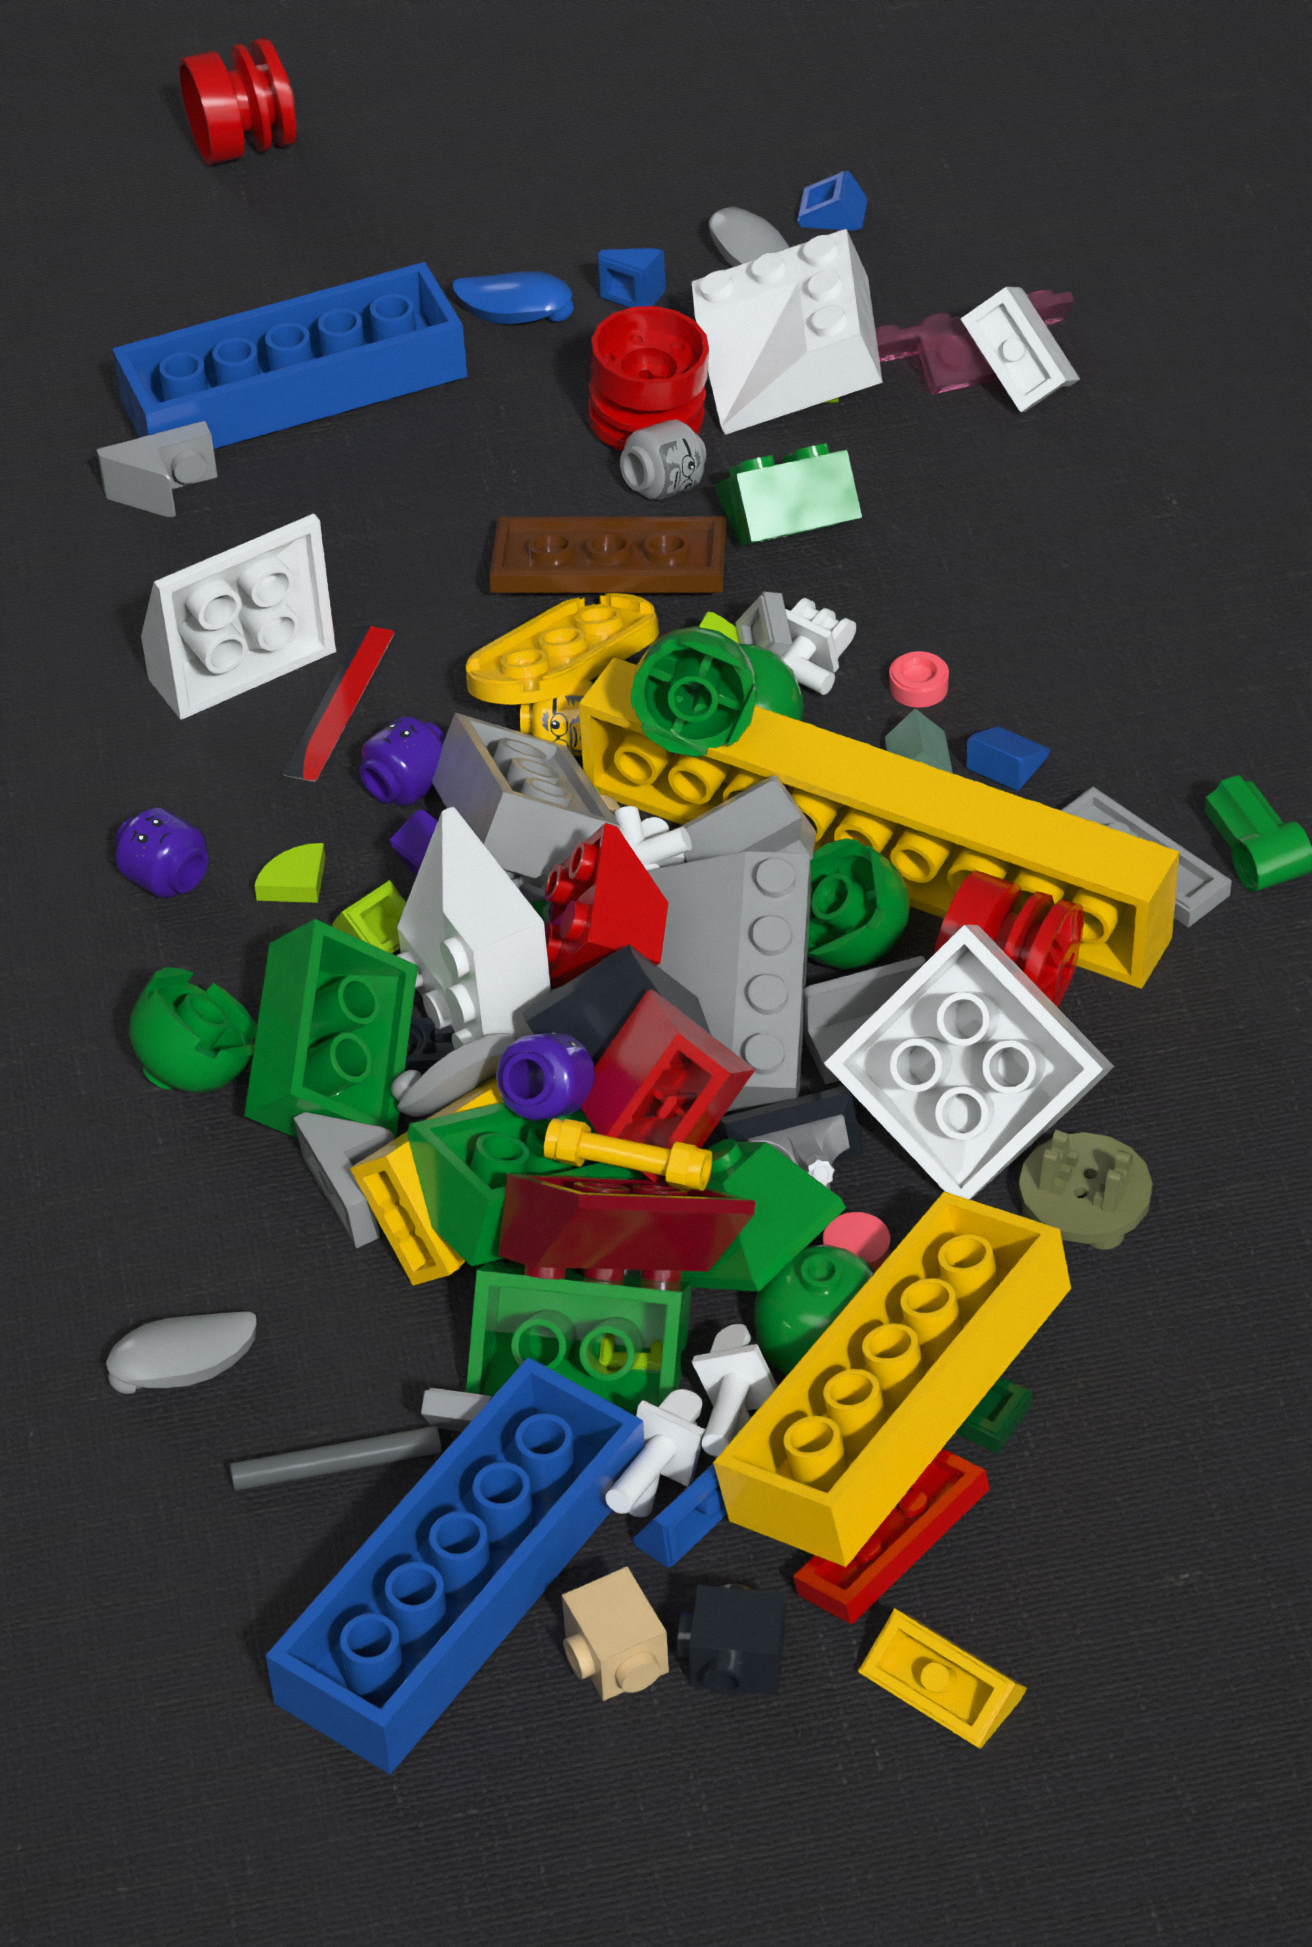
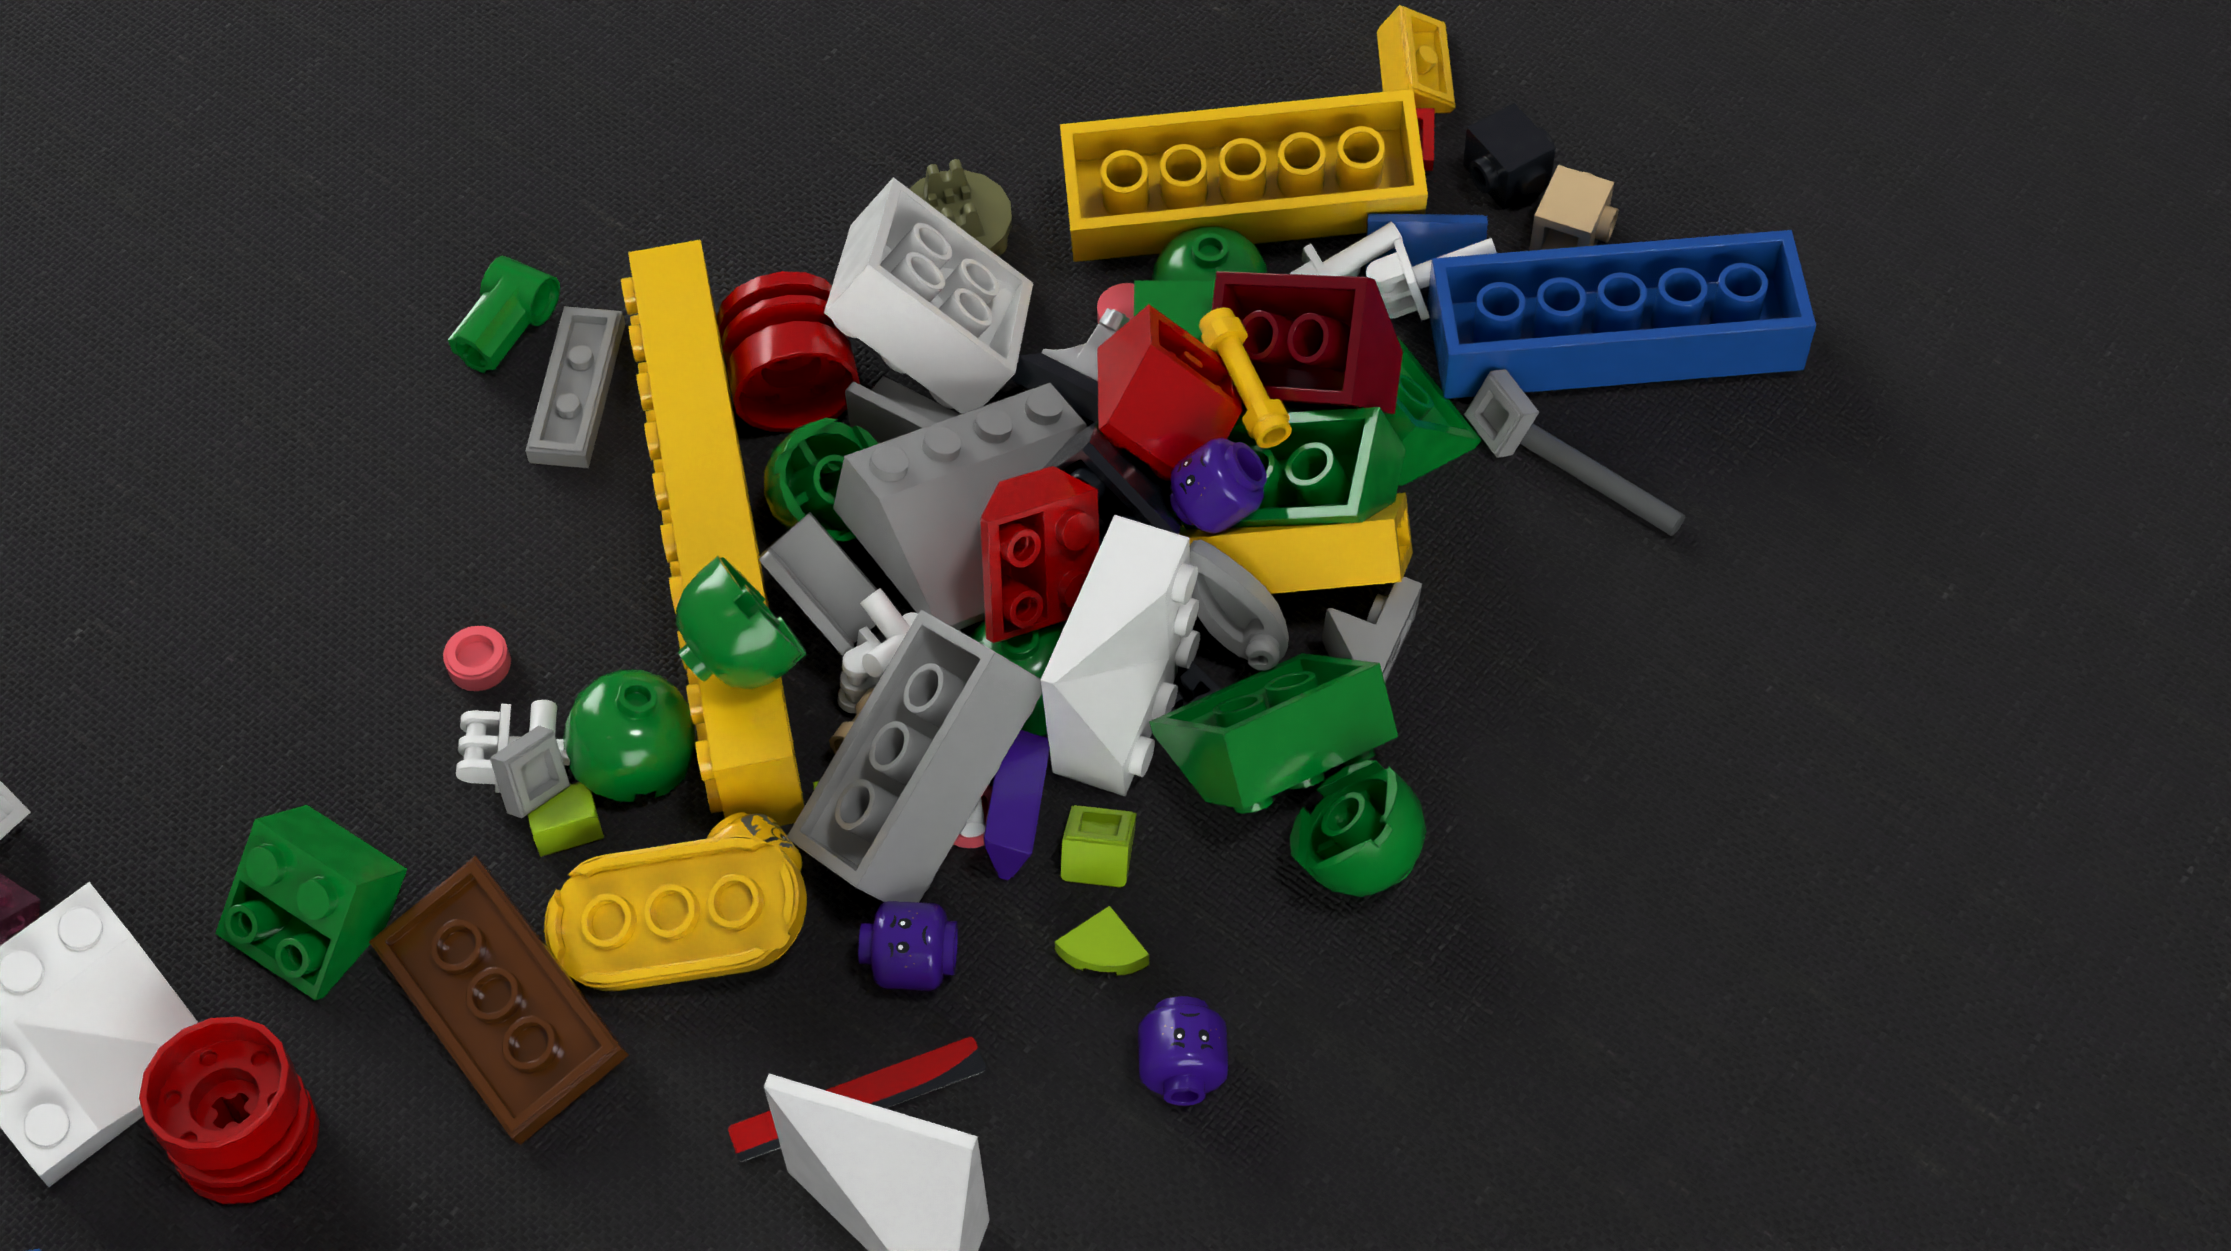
camera: 130 degrees left, 10 degrees up
(180, 1350) = (1622, 630): light grey arm -> none
(663, 460) = (330, 1041): light grey head -> none
(920, 740) = (578, 597): sand green slope -> none
(1004, 756) = (528, 534): blue slope -> none

